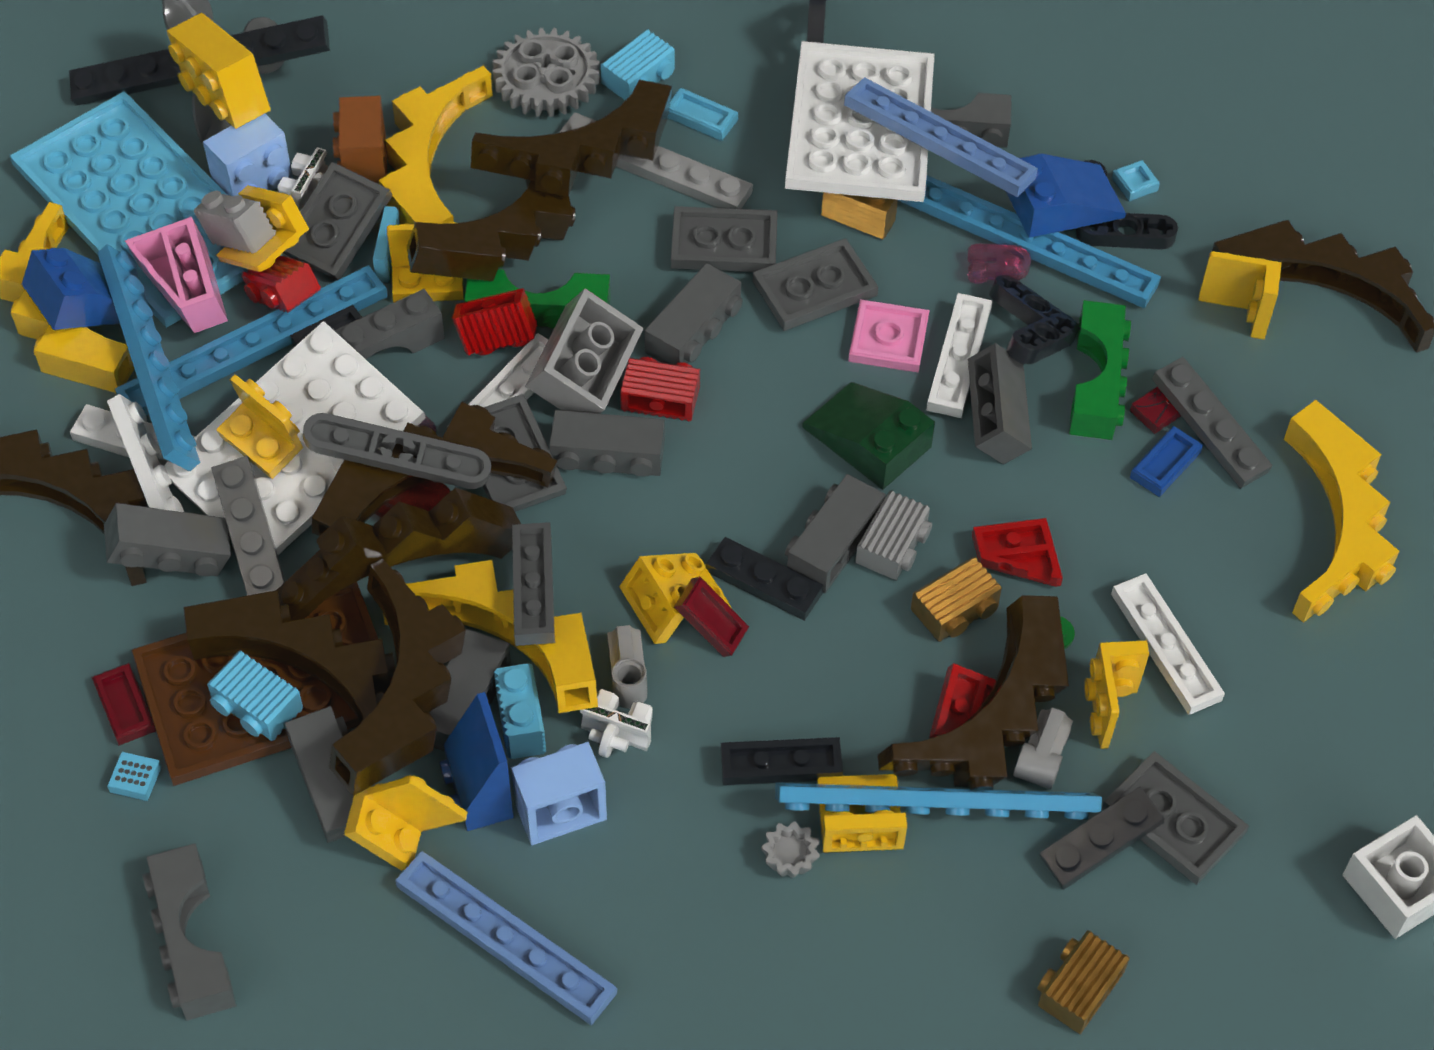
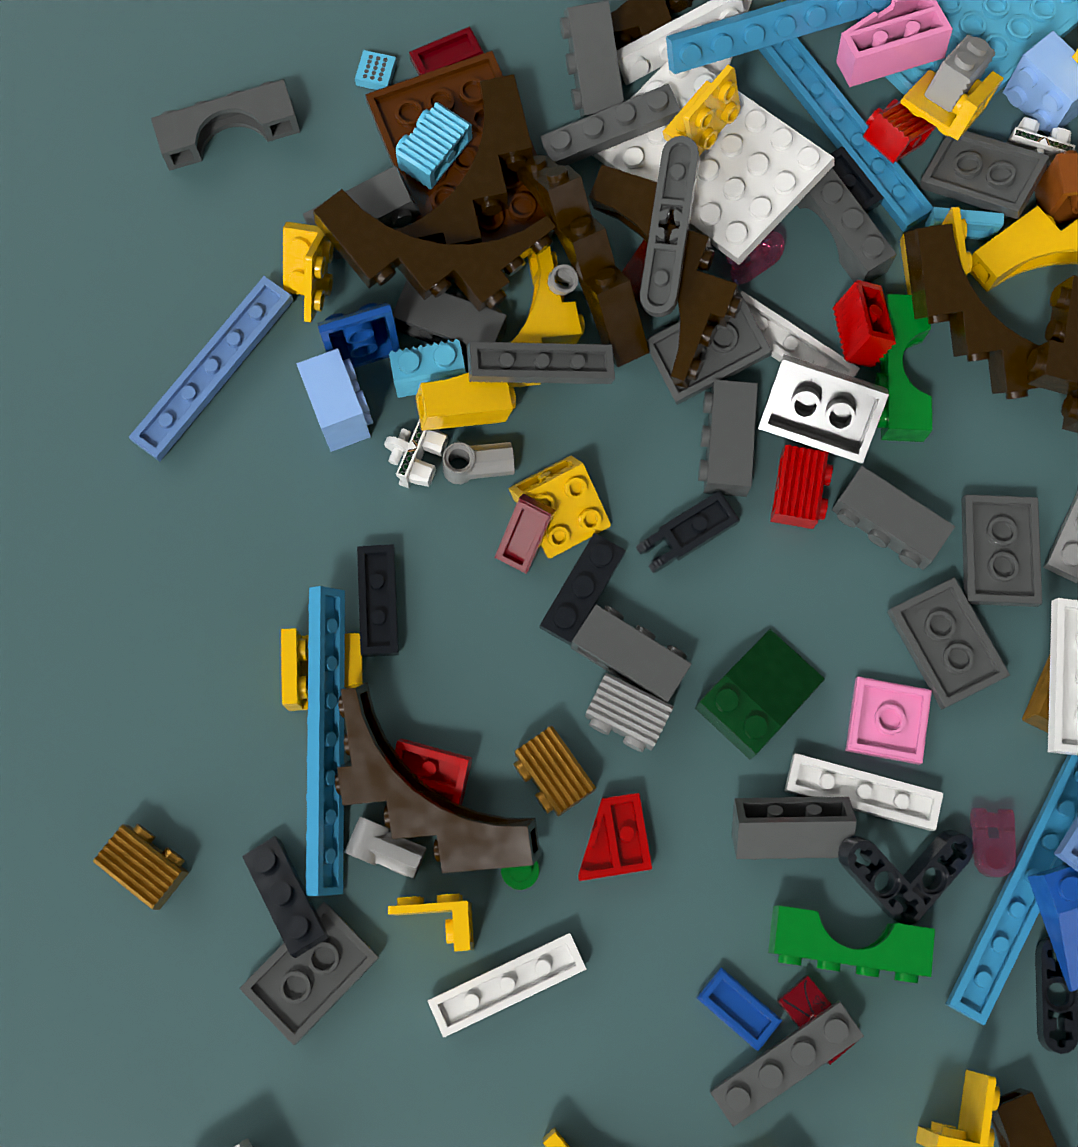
camera: 90 degrees right, 20 degrees up
(430, 561) = (564, 274): none -> light grey hinge
(704, 482) = (691, 530): none -> black hinge
(790, 850) = (282, 605): light grey piece -> none

